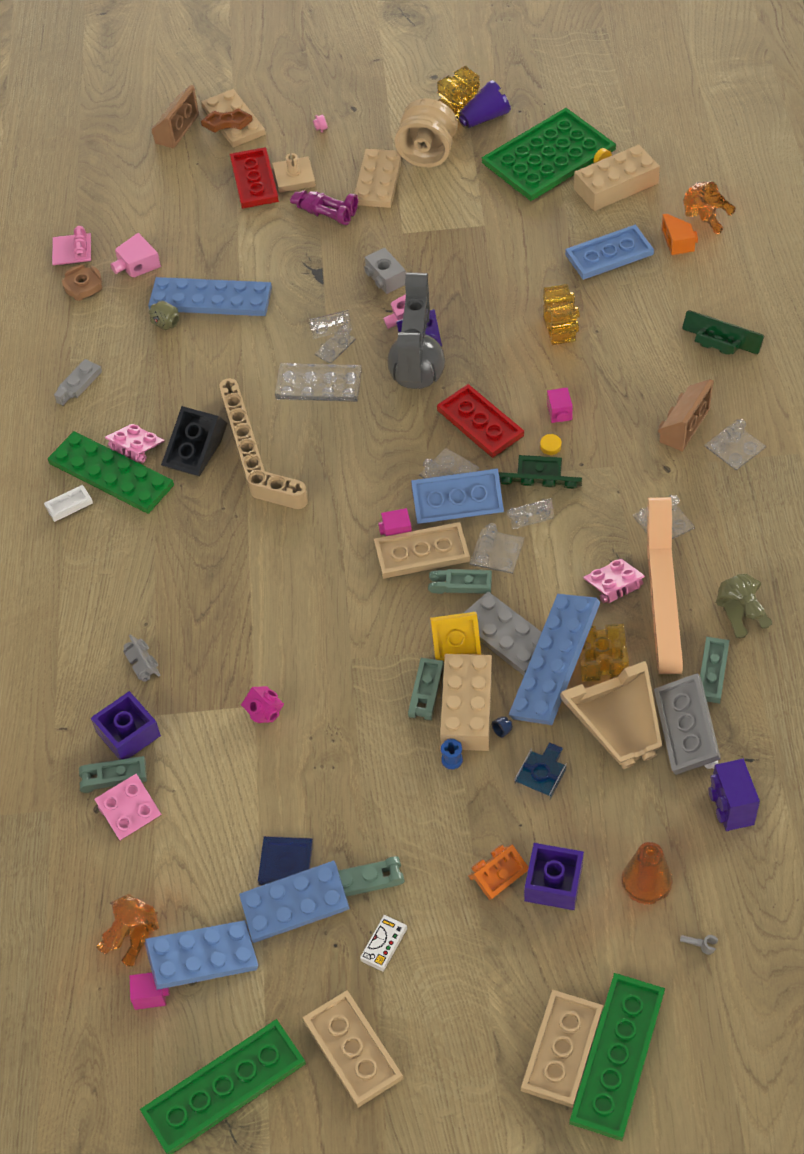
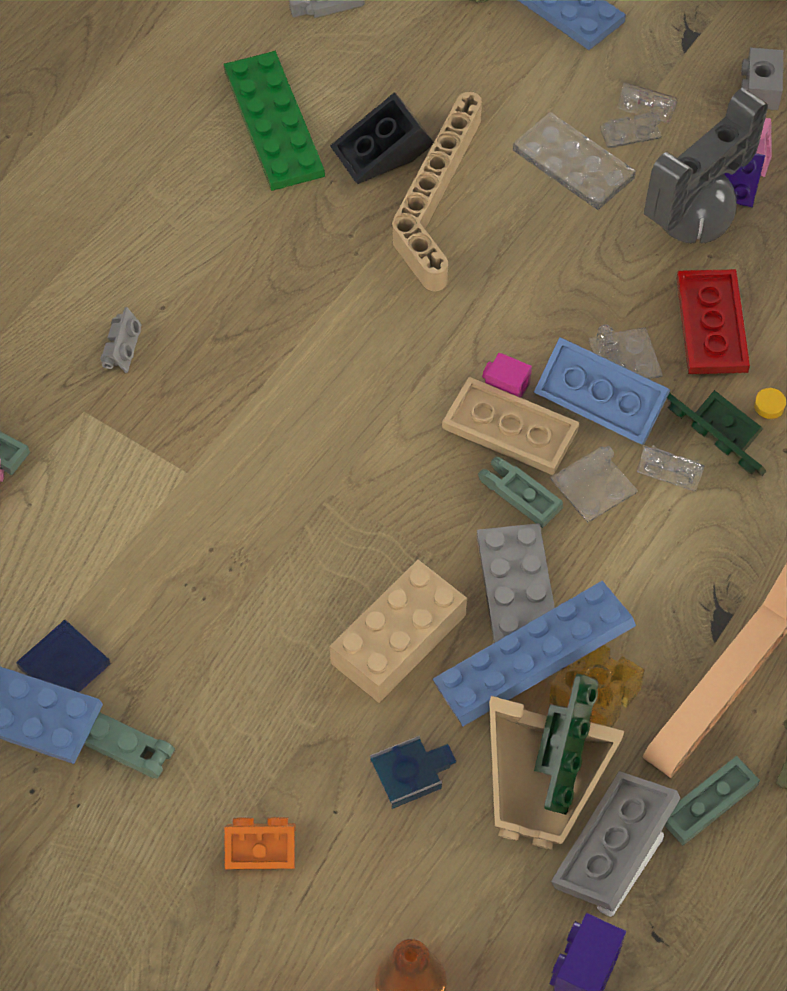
camera: 35 degrees right, 5 degrees up
(68, 503) = (201, 125): white plate -> none
(125, 726) = (36, 402): dark purple brick -> none
(133, 442) = (323, 101): bright pink hinge -> none
(262, 704) = (188, 476): dark pink brick -> none
(383, 943) = (77, 827): white tile -> none
(426, 688) = (369, 584): sand green plate -> none
(451, 754) = (333, 670): blue bush -> none
(455, 635) = (451, 549): yellow tile -> none
(501, 726) = (415, 686): dark blue hinge -> none
(553, 876) = (306, 897): dark purple brick -> none
(615, 580) = (694, 609): bright pink hinge -> none
(616, 692) = (564, 741): none -> dark green bracket

